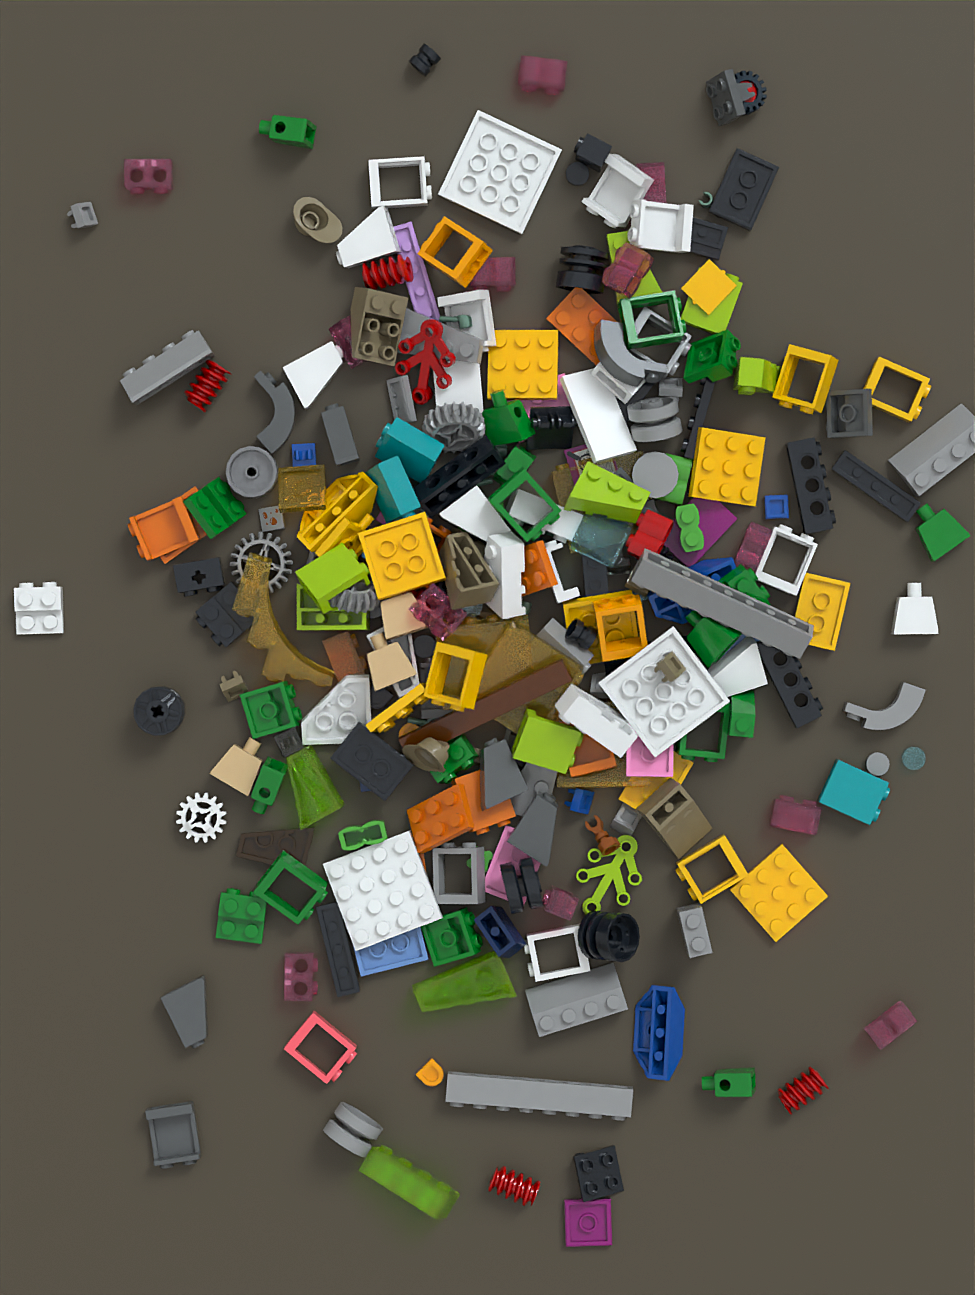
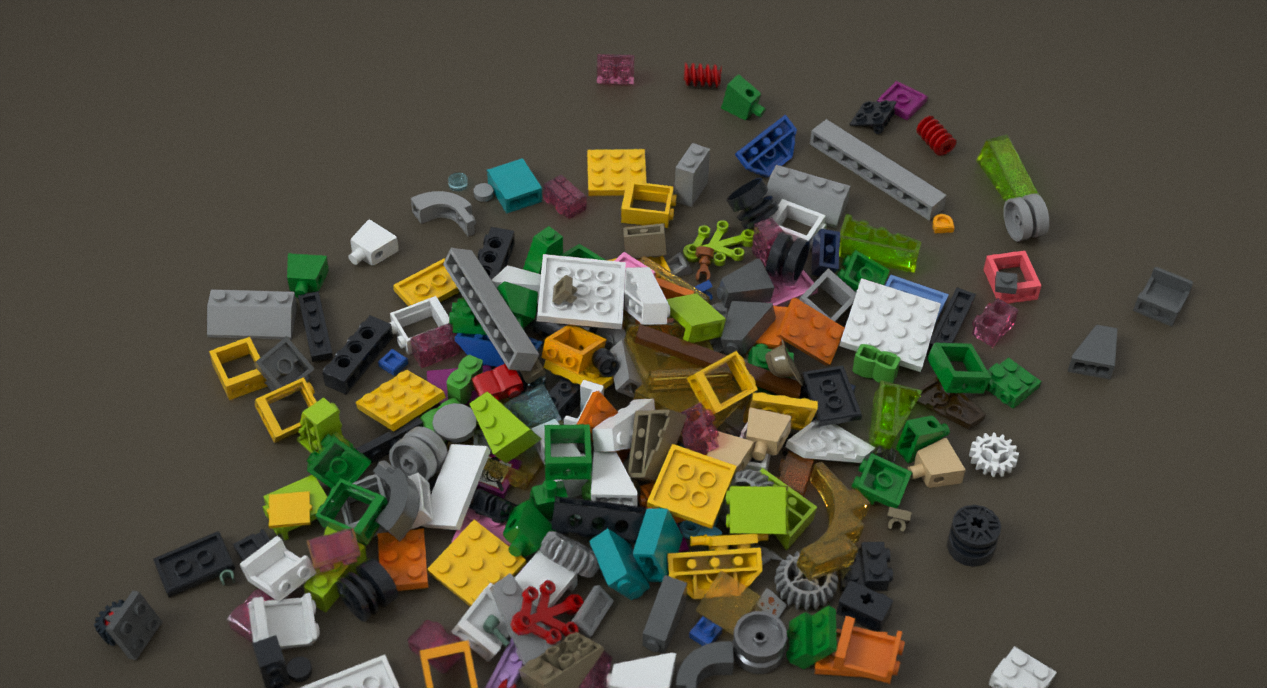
camera: 140 degrees left, 40 degrees down
(314, 1022) = (1006, 282): none -> dark grey plate

